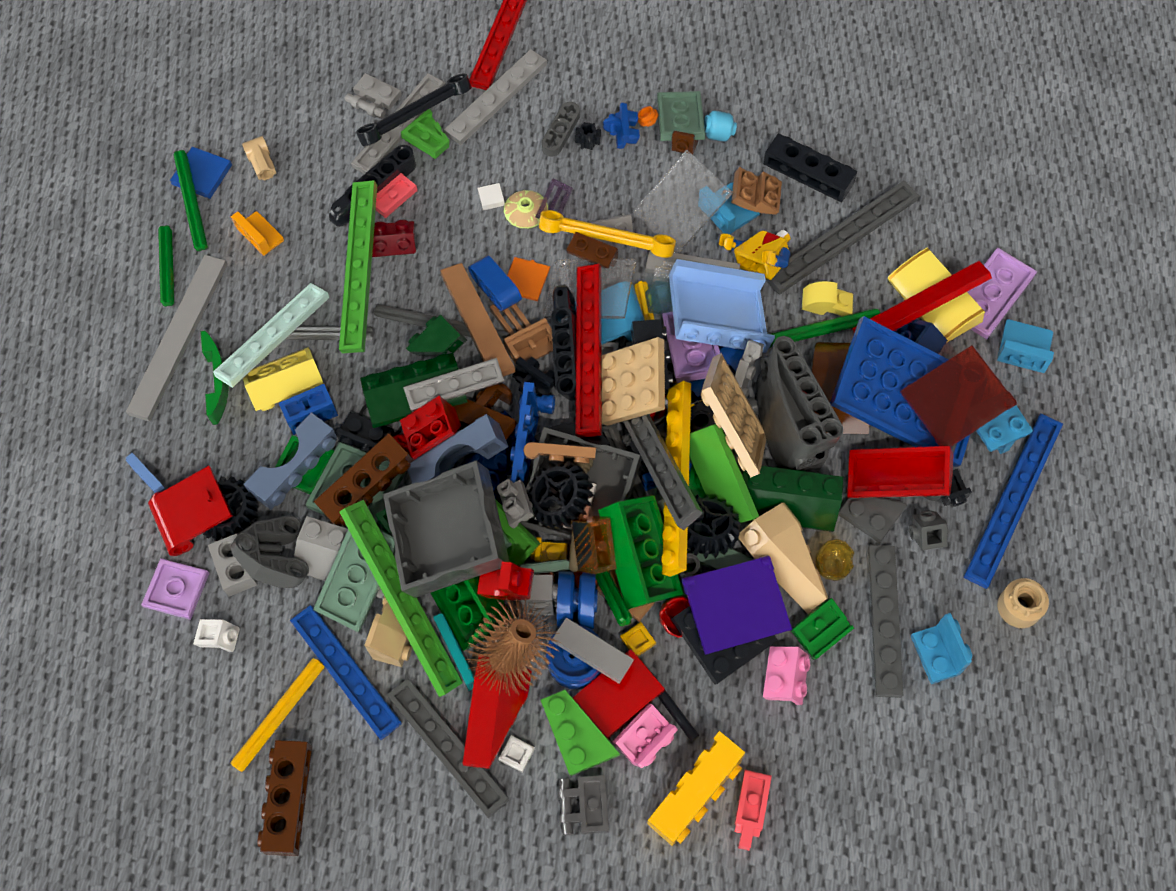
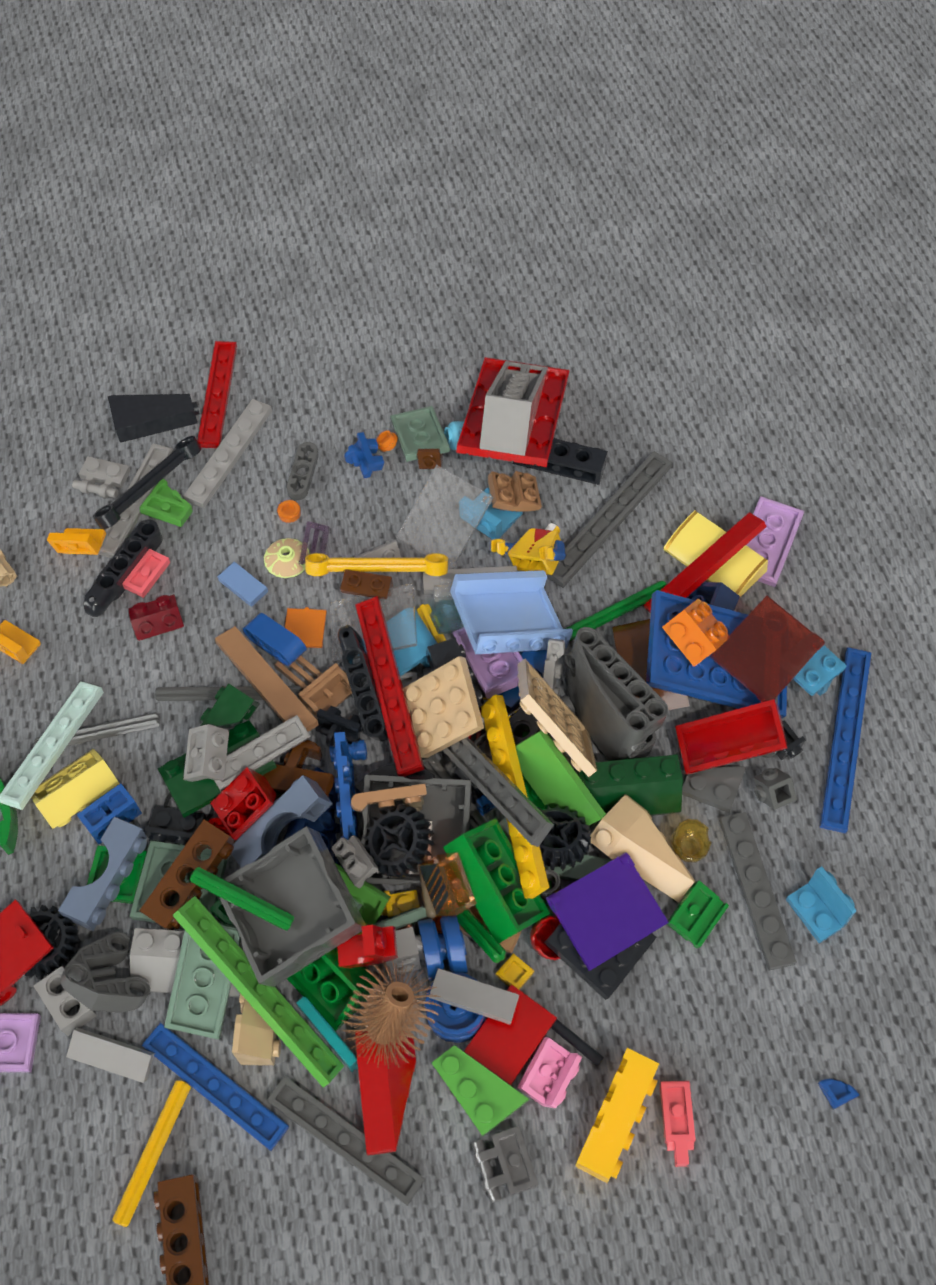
camera: 15 degrees left, 5 degrees down
(216, 634) = (64, 1081): white bracket -> none
(261, 622) = (110, 1055): none -> light grey tile
(337, 151) = (77, 541): none -> light orange panel
(358, 267) = (128, 655): bright green plate -> none
(404, 512) = (242, 898): none -> green axle
(405, 374) = (206, 753): none -> light grey bracket
(432, 44) = (151, 414): none -> black slope
(479, 225) = (242, 584): none -> medium blue tile
(491, 196) = (248, 552): white tile -> none
(516, 753) = (419, 1127): white tile -> none
(538, 165) = (289, 511): none -> orange tile
(587, 135) = (332, 472): black gear -> none
(776, 113) = (514, 412): none -> piece
(786, 674) = (675, 970): bright pink bracket -> none
(825, 297) = (610, 580): light yellow brick -> none
(892, 364) = (696, 632): none -> orange bracket
(908, 821) = (837, 1092): none -> blue tile
(1014, 612) = (876, 847): tan piece -> none
(1026, 346) = (815, 585): dark azure bracket -> none

